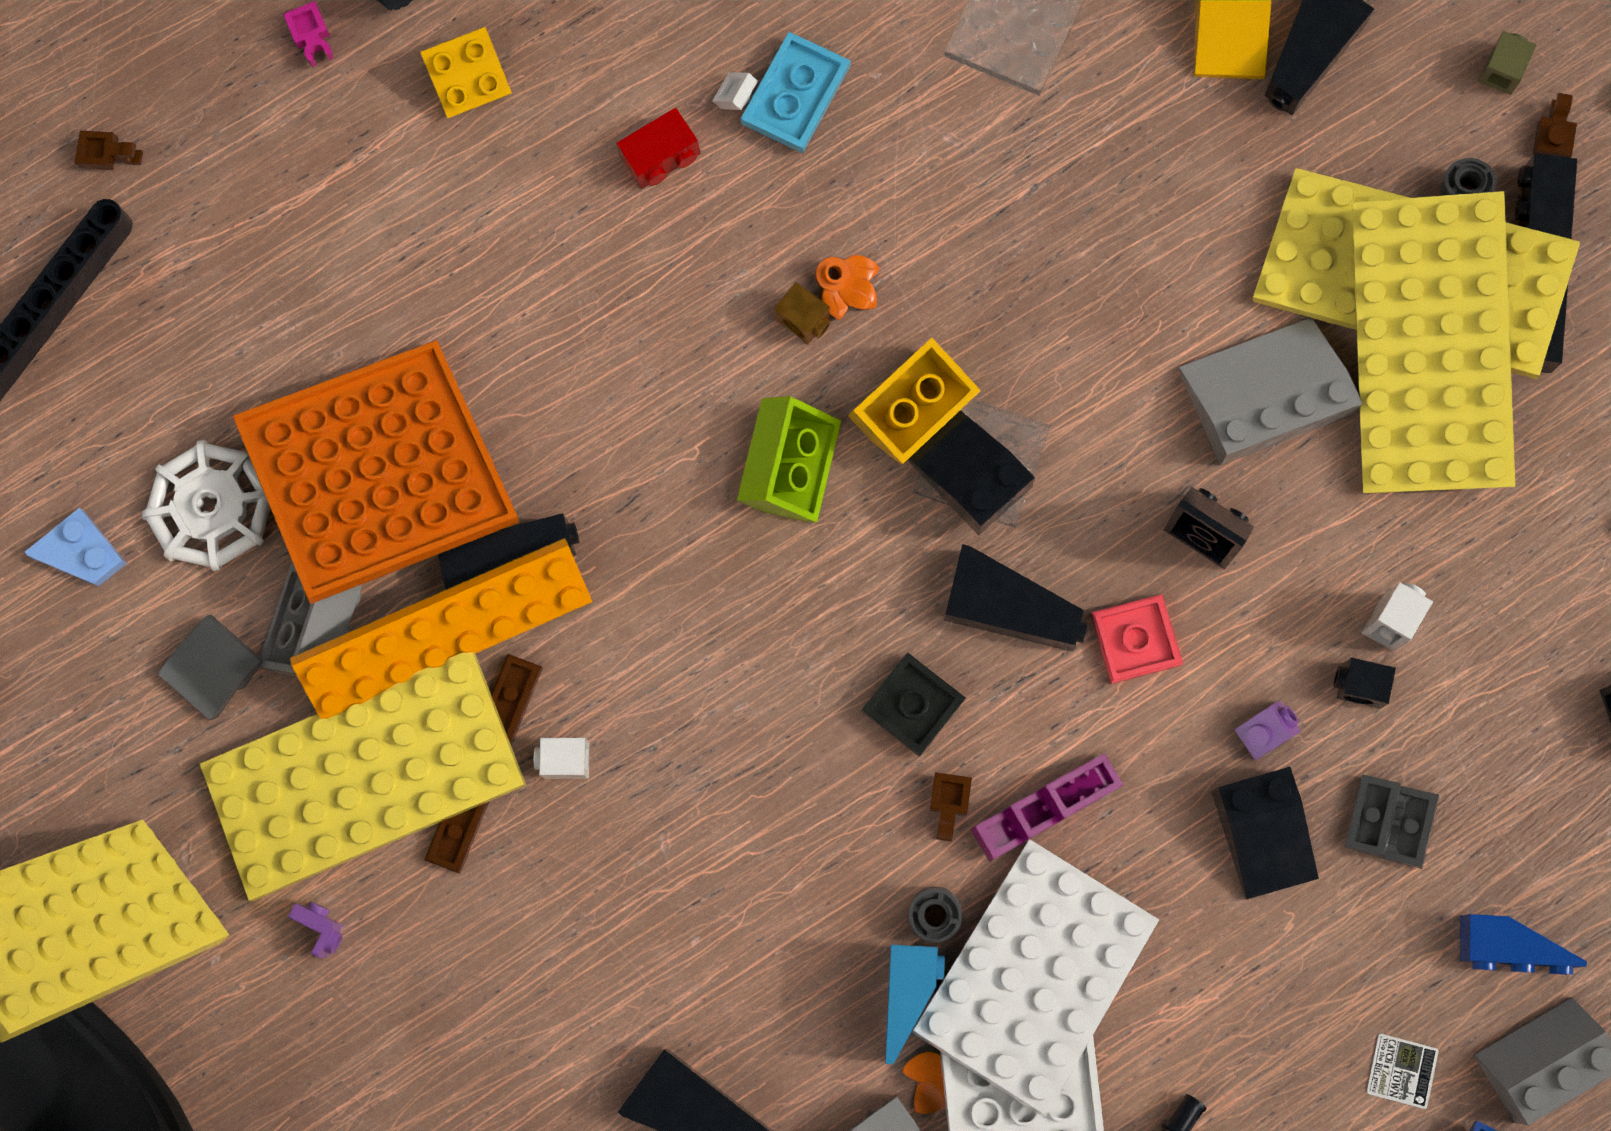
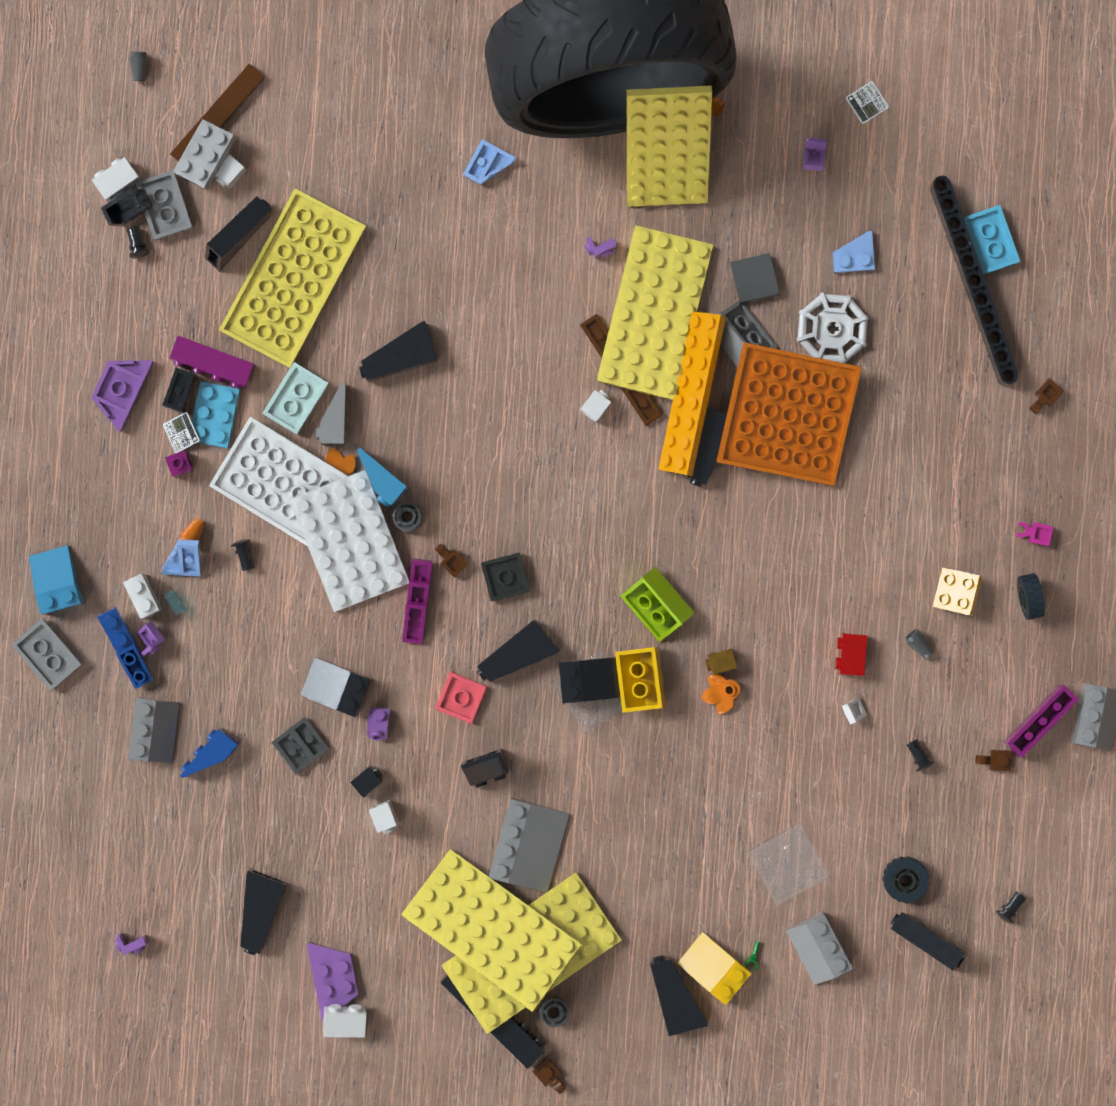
camera: 120 degrees right, 10 degrees up
(576, 75) = (919, 643): none -> dark grey cone
(795, 92) = (832, 738): medium azure plate -> none
(1402, 1071) = (195, 667): sticker -> none
(1507, 62) = (598, 1079): olive brick -> none

